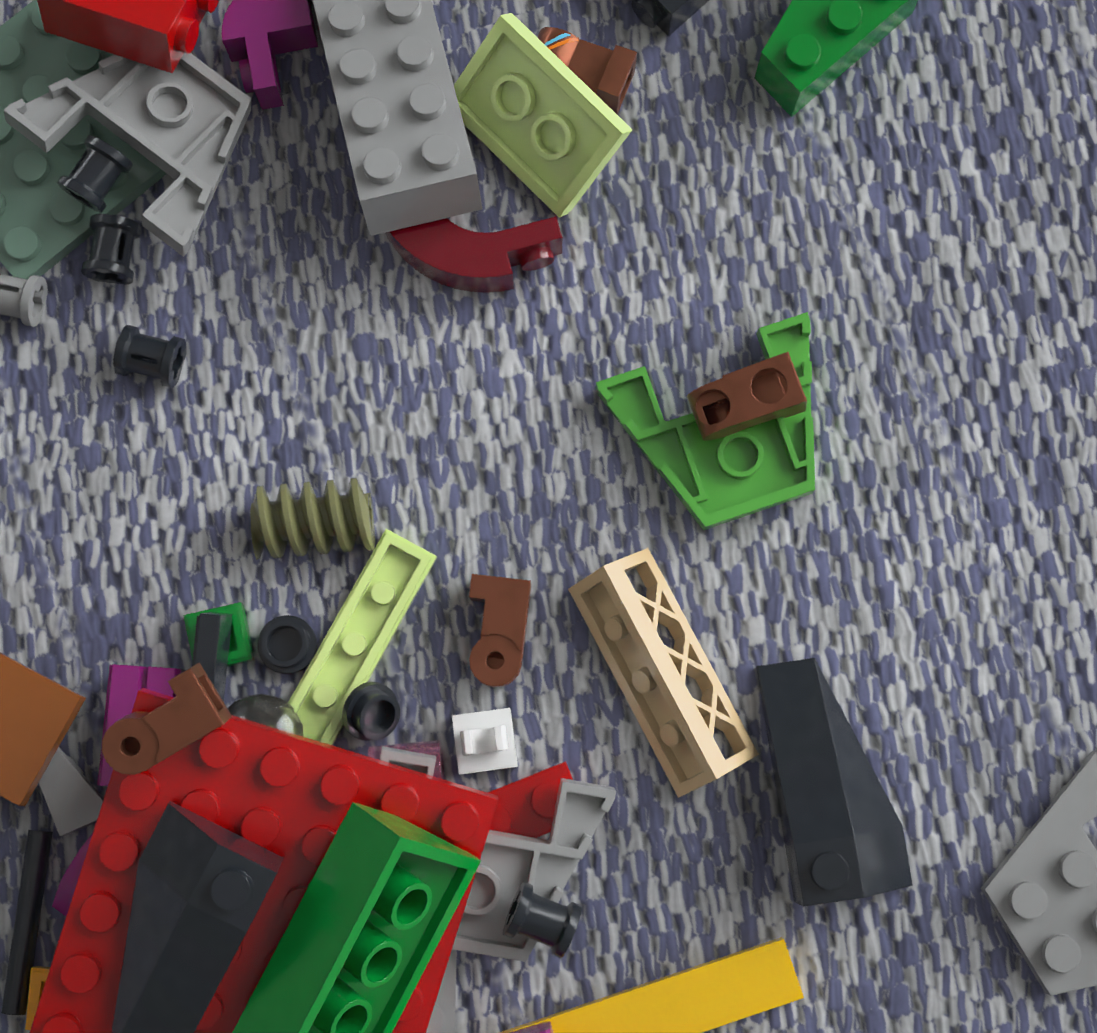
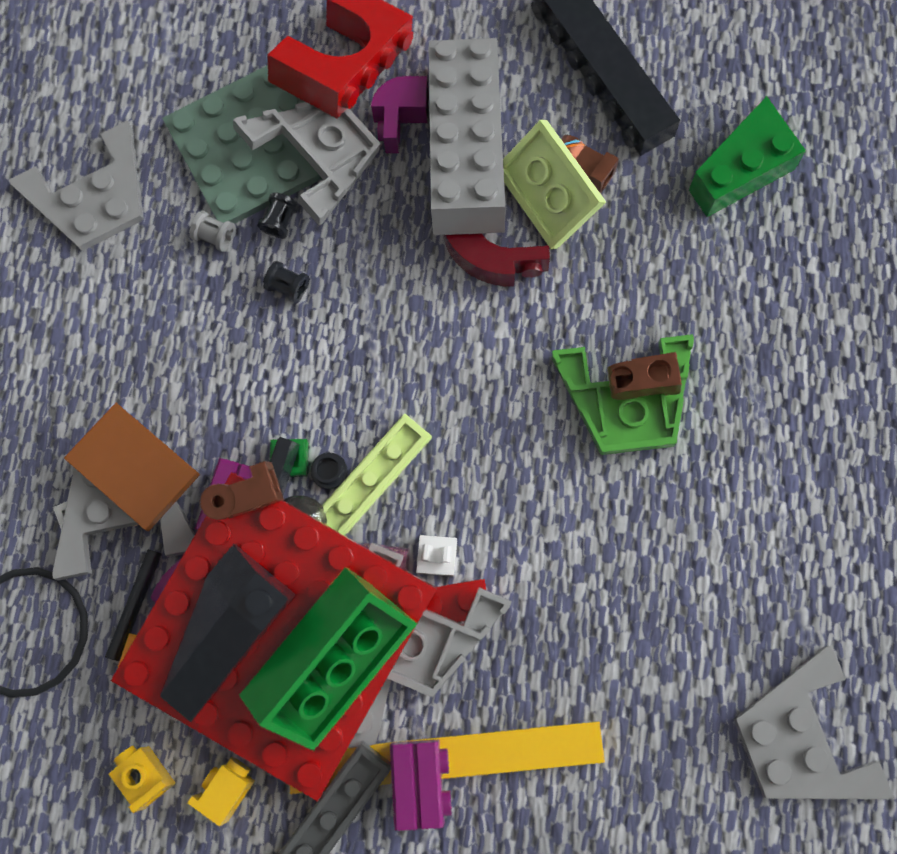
camera: 20 degrees right, 5 degrees down
(95, 173) = (278, 168): black bush -> none
(311, 518) = (360, 397): olive piece -> none
(371, 711) = (370, 521): black plate -> none
(499, 652) = (458, 501): copper leg -> none
(542, 920) = (448, 671): black bush -> none
(655, 675) = (551, 537): tan fence -> none
(832, 808) = (647, 642): black wedge -> none

